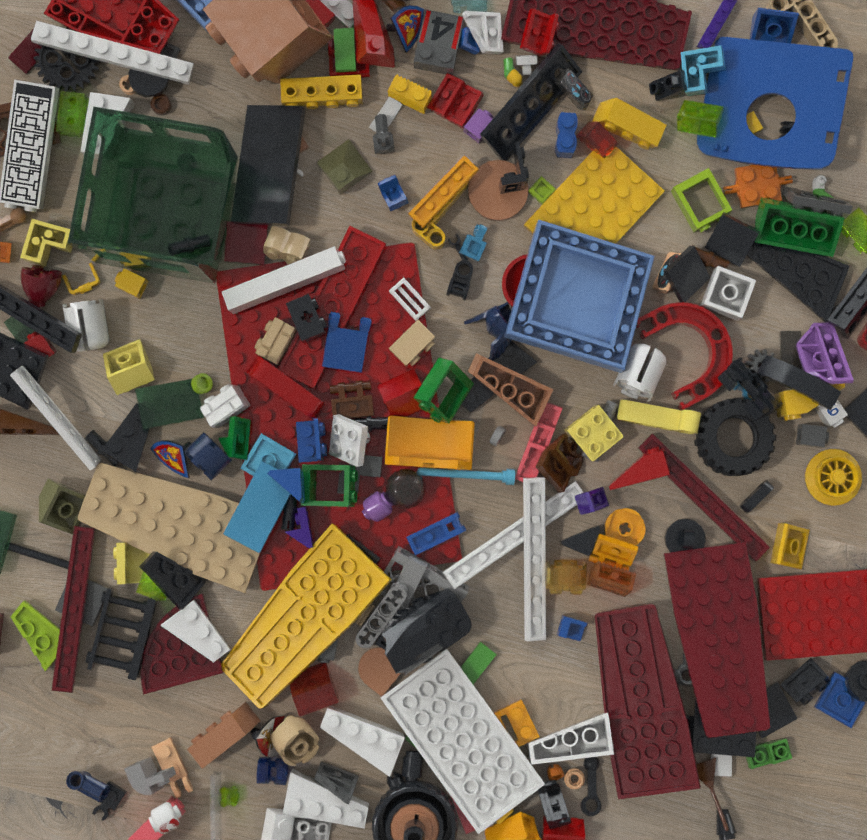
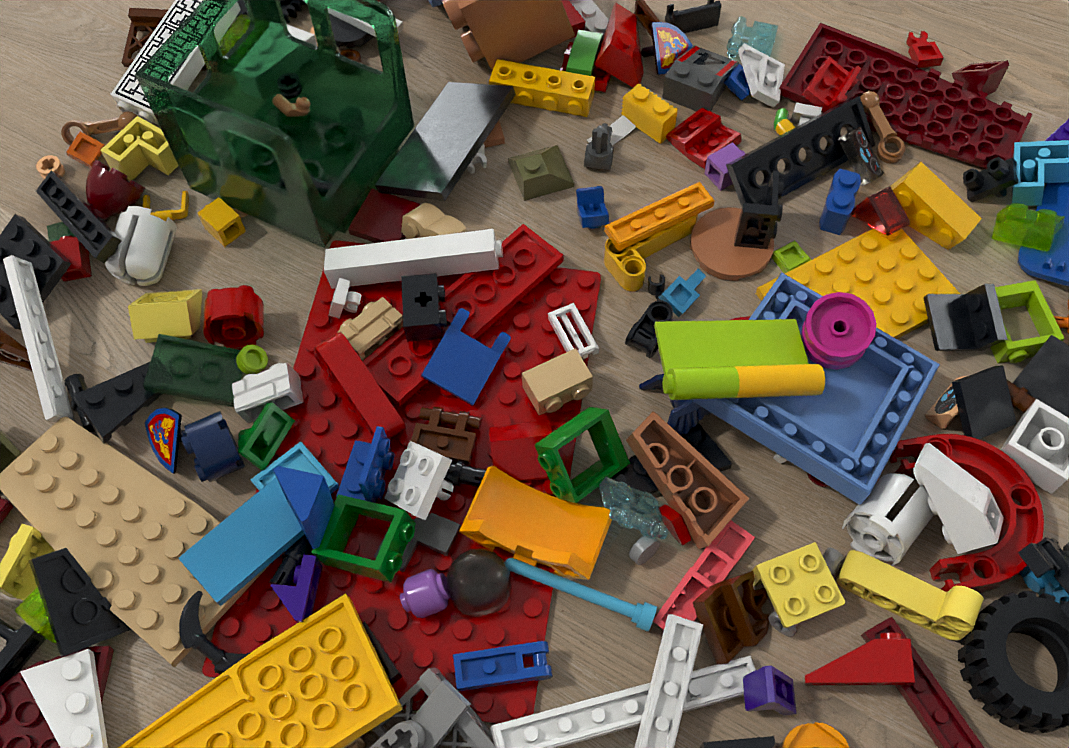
camera: 20 degrees right, 25 degrees down
(126, 147) = (286, 80): none -> black bush
(146, 180) = (289, 109): none -> nougat arm
(178, 360) = (233, 317): none -> red brick
(246, 323) = (344, 299): none -> white tile
(253, 575) = (192, 636): none -> black piece
(483, 411) = (632, 508): none -> clear light blue plate
(511, 413) = (675, 524): none -> red tile
(524, 305) = (735, 360): none -> lime door
(570, 40) = (870, 103): none -> medium nougat piece
(595, 266) = (838, 330): none -> dark pink wheel
(665, 213) = (965, 320): none -> black bracket
(678, 352) = (961, 501): none -> white slope

